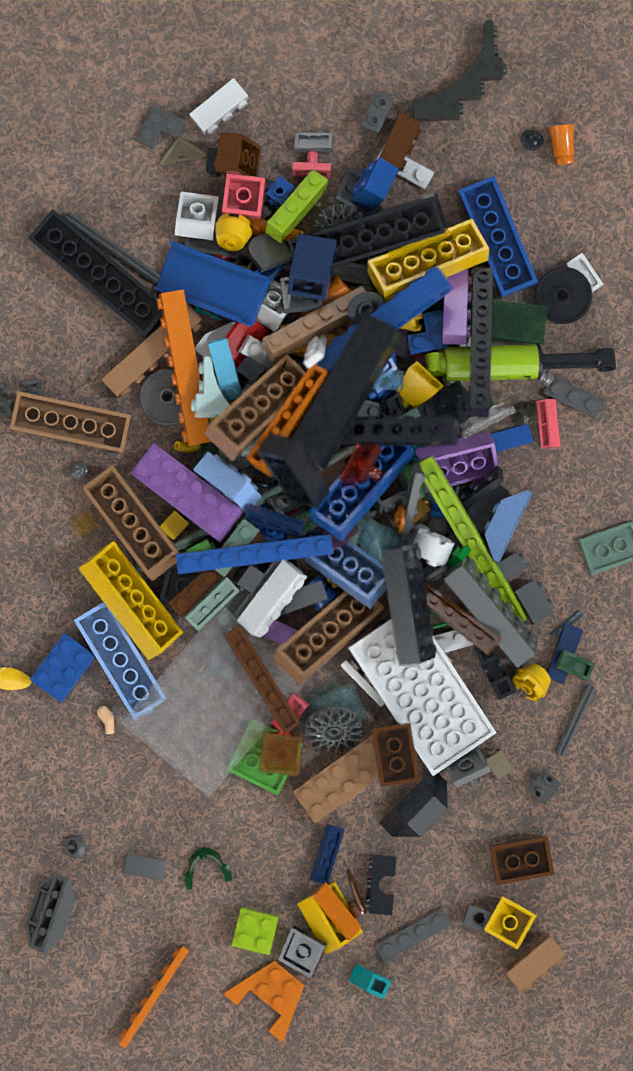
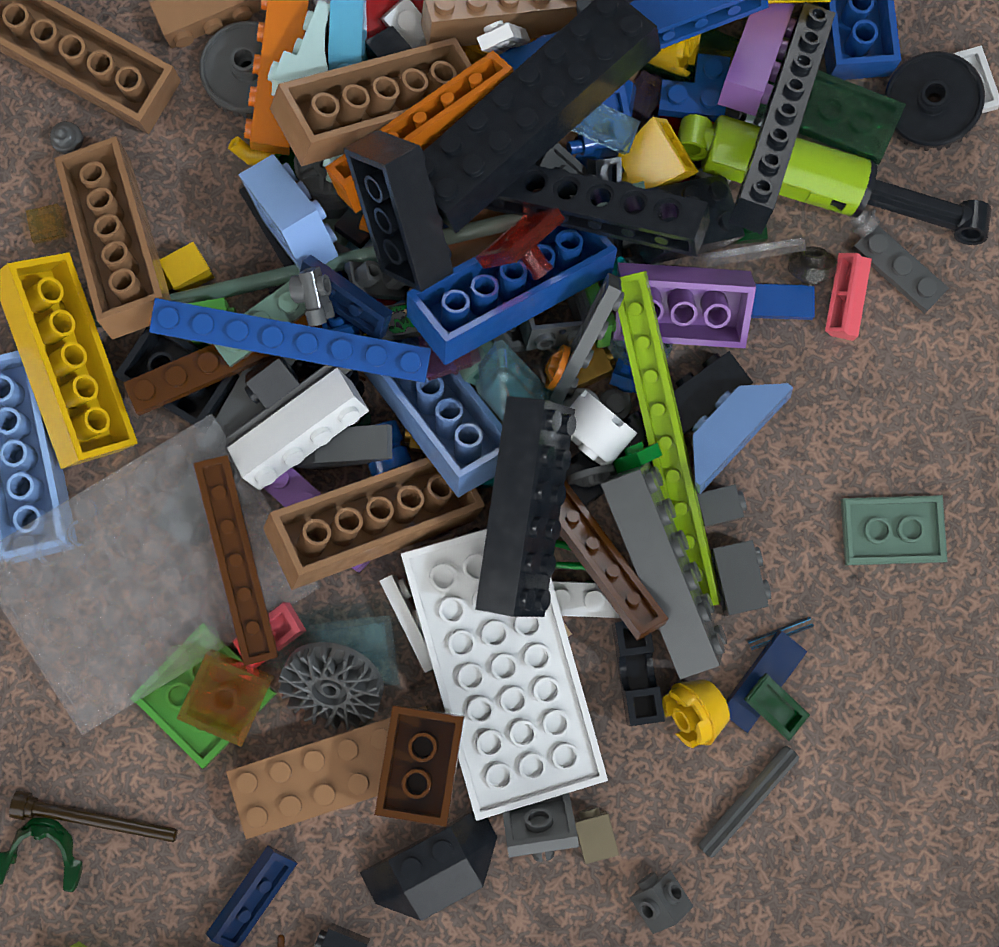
camera: 10 degrees right, 5 degrees down
(188, 493) = (221, 217): medium lavender brick -> none
(189, 844) = (26, 806): none -> dark brown piece
(211, 603) = (194, 406): sand green plate -> none
(259, 523) = (313, 289): none -> dark grey plate
(481, 487) = (709, 358): black plate -> none

